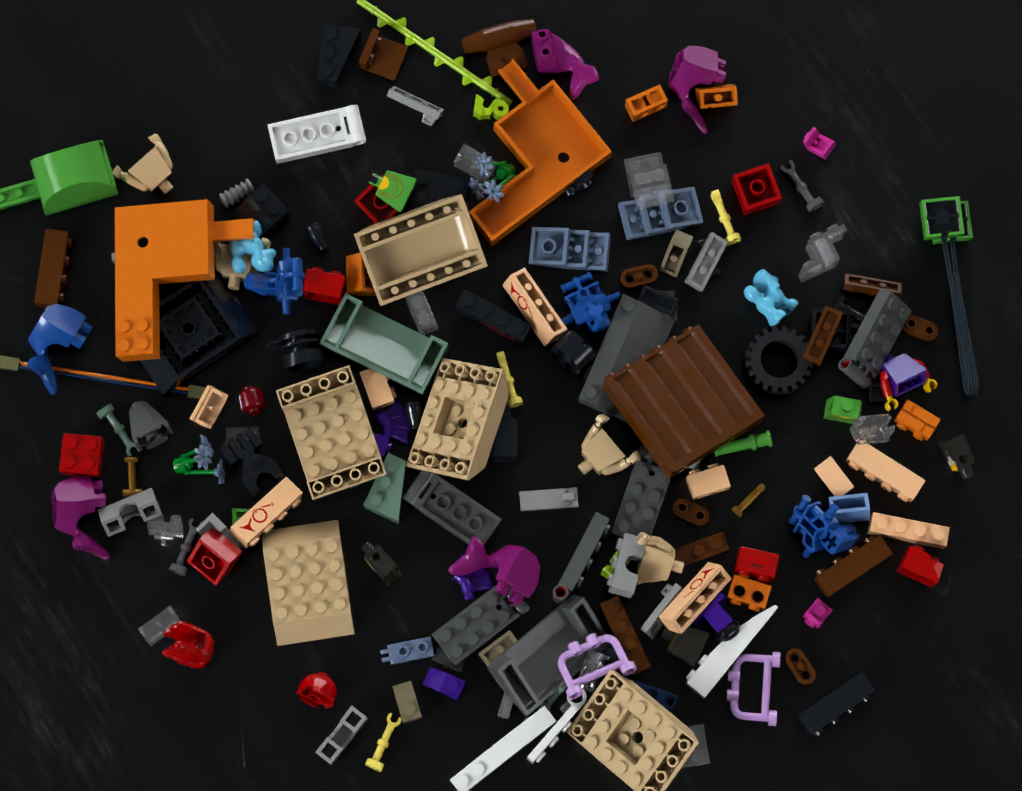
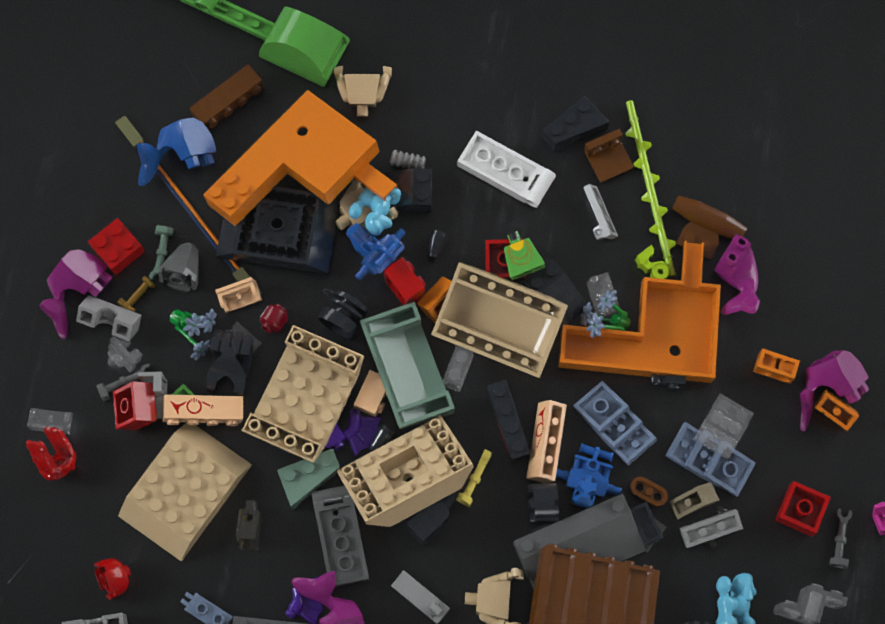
camera: 45 degrees right, 5 degrees down
(724, 218) = (749, 528): light yellow piece -> none

